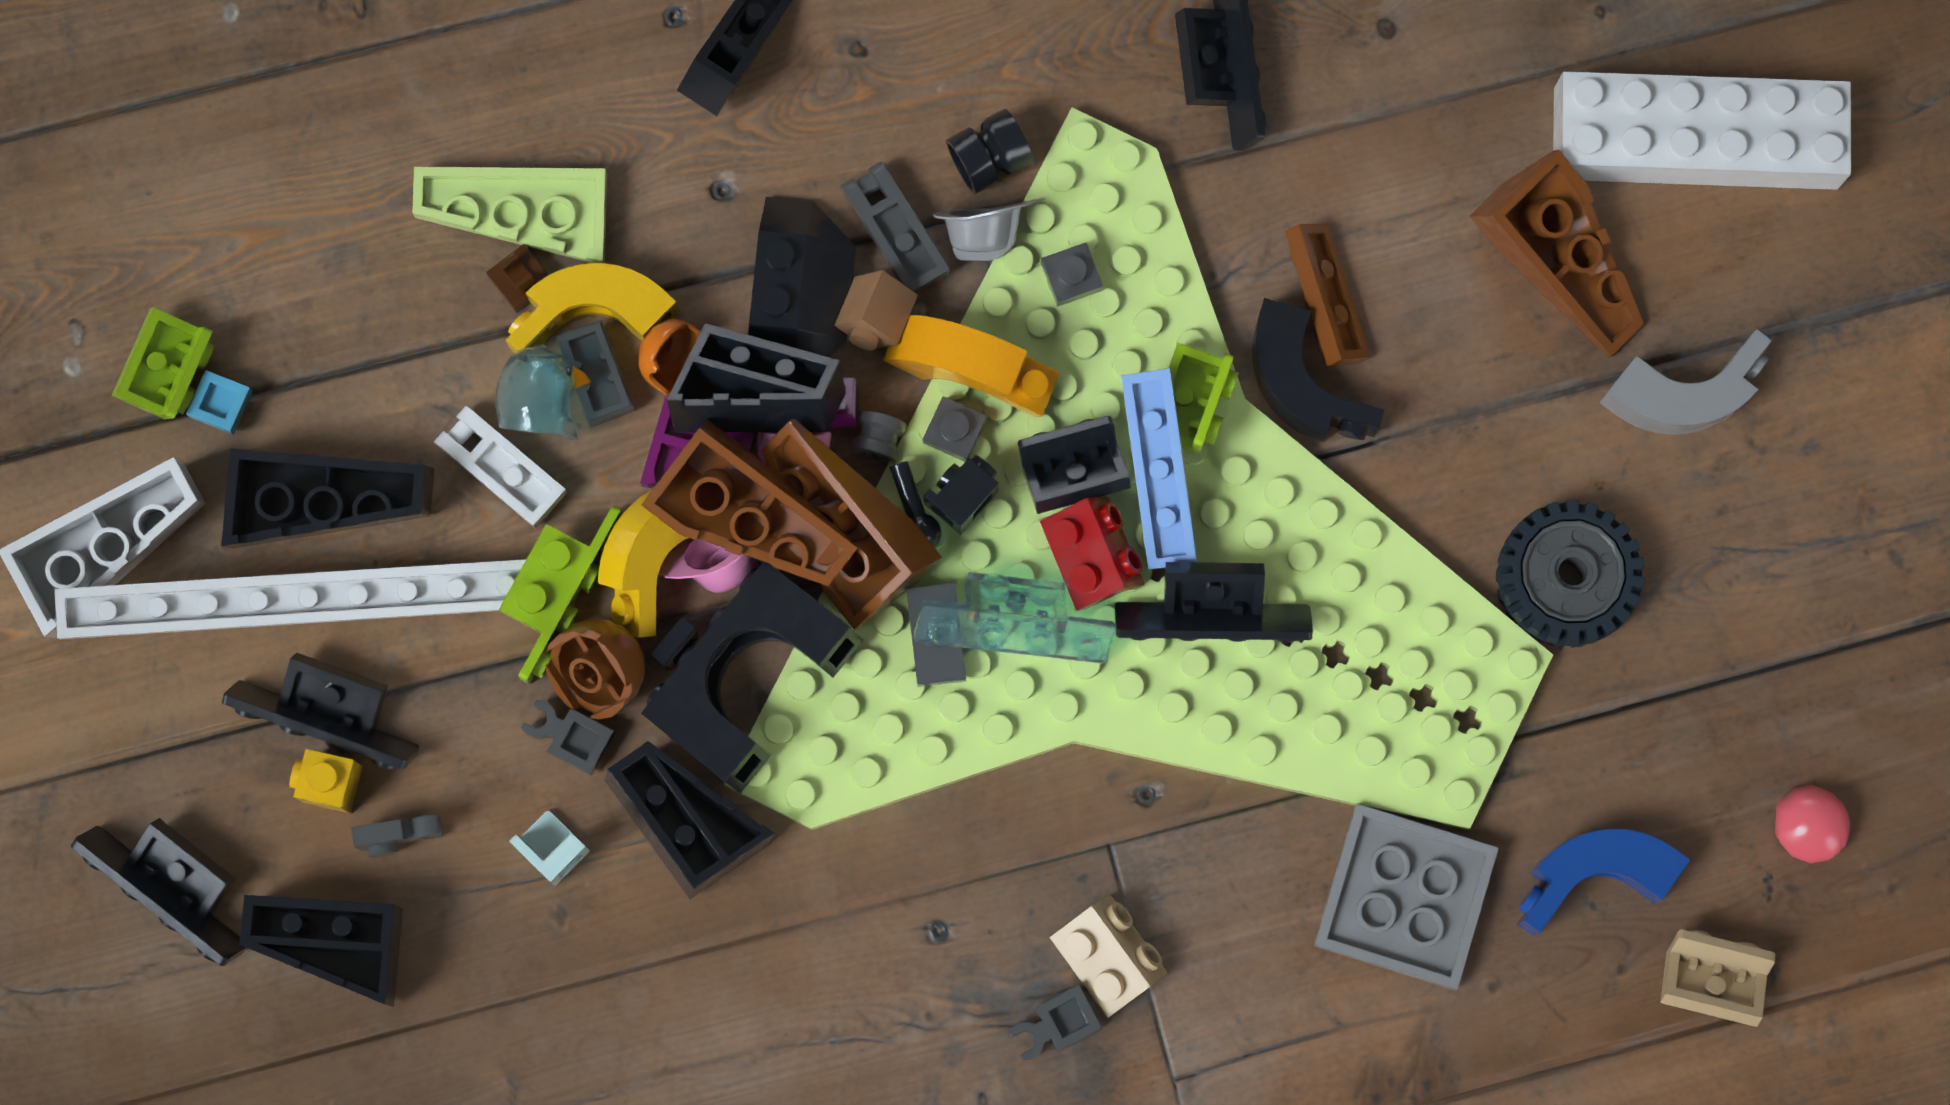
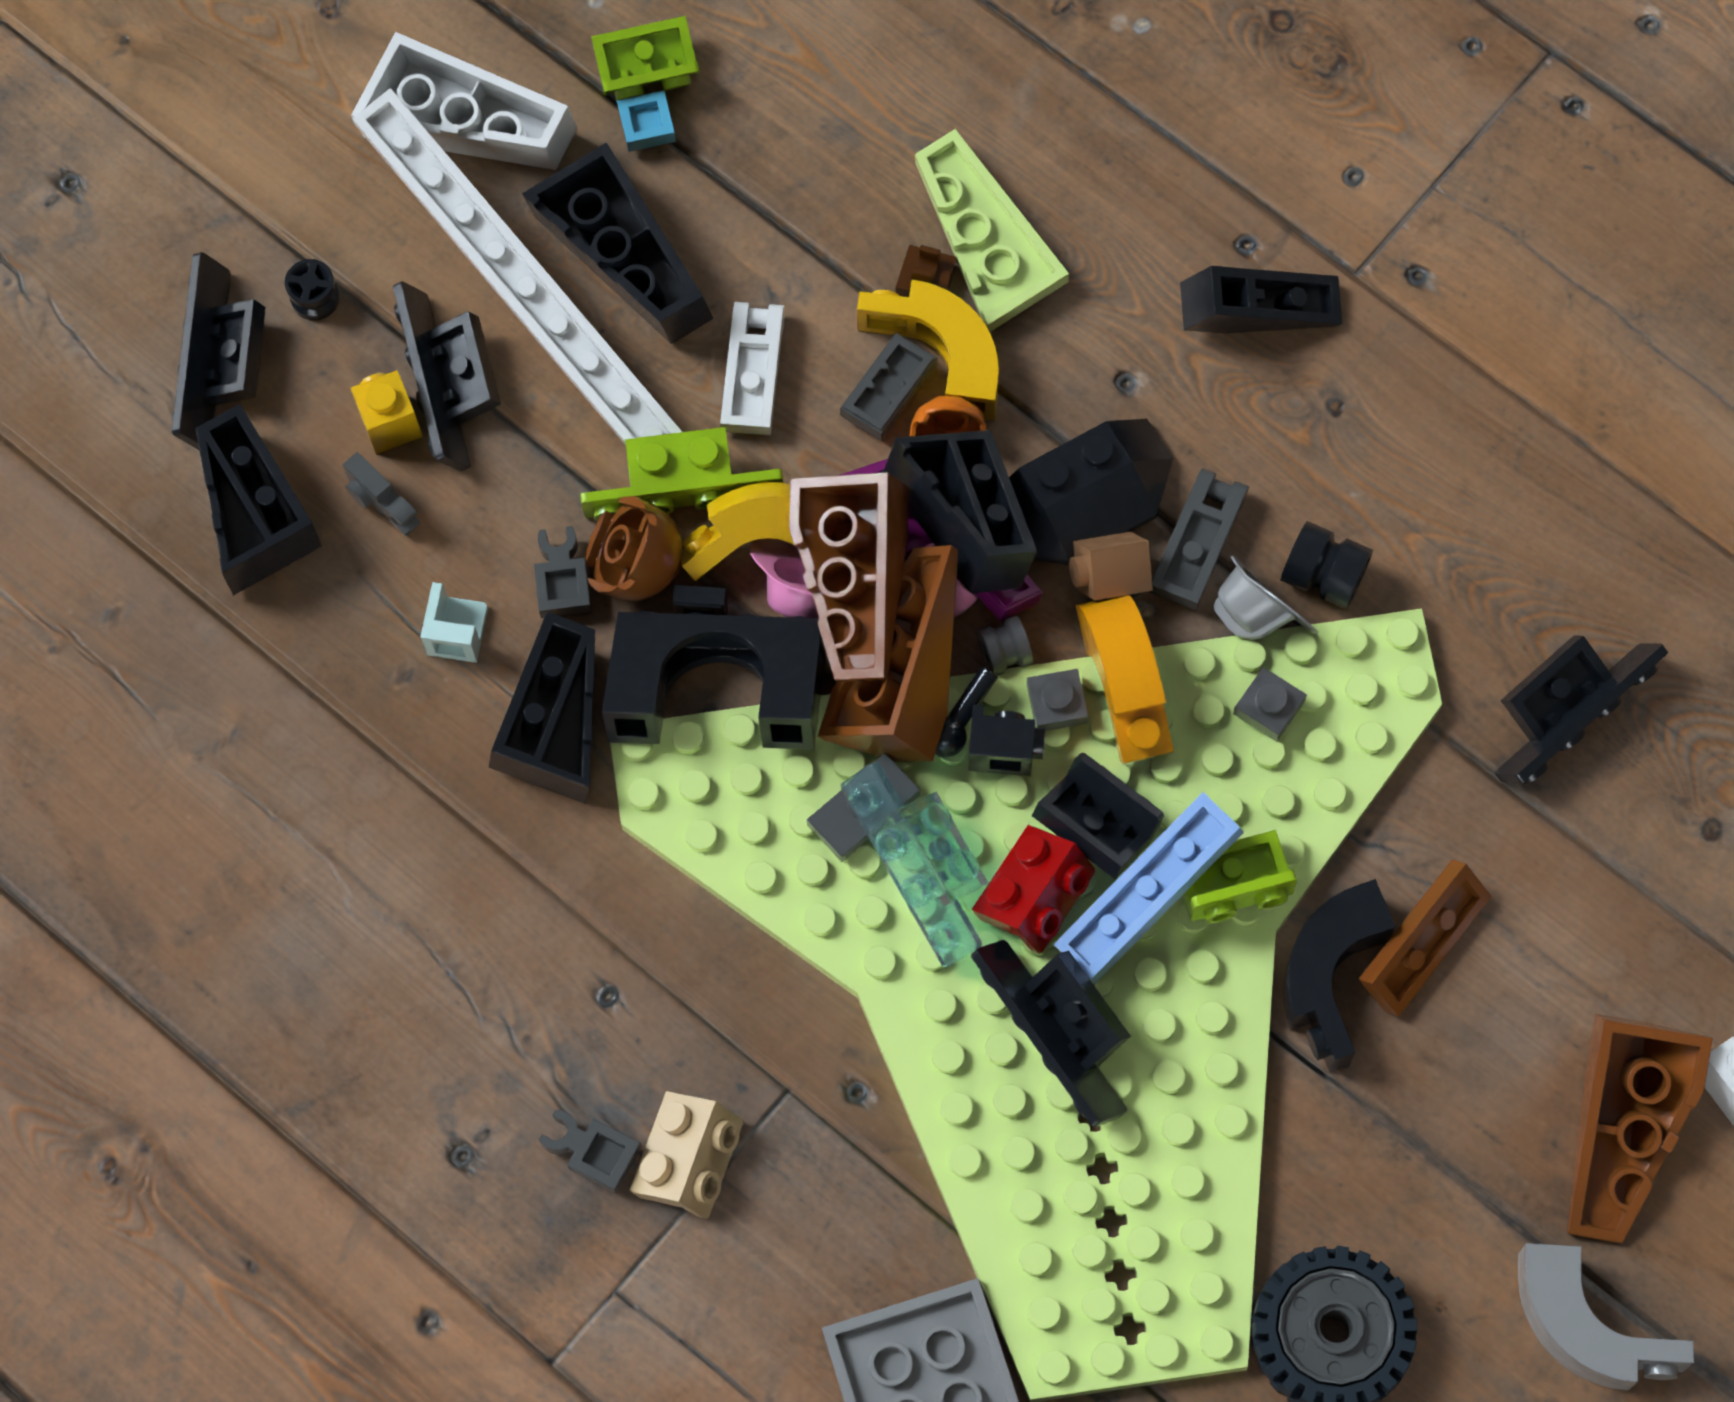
camera: 60 degrees right, 10 degrees down
(162, 763) = (306, 278): none -> black wheel
(537, 392) = (833, 345): clear light blue piece -> none

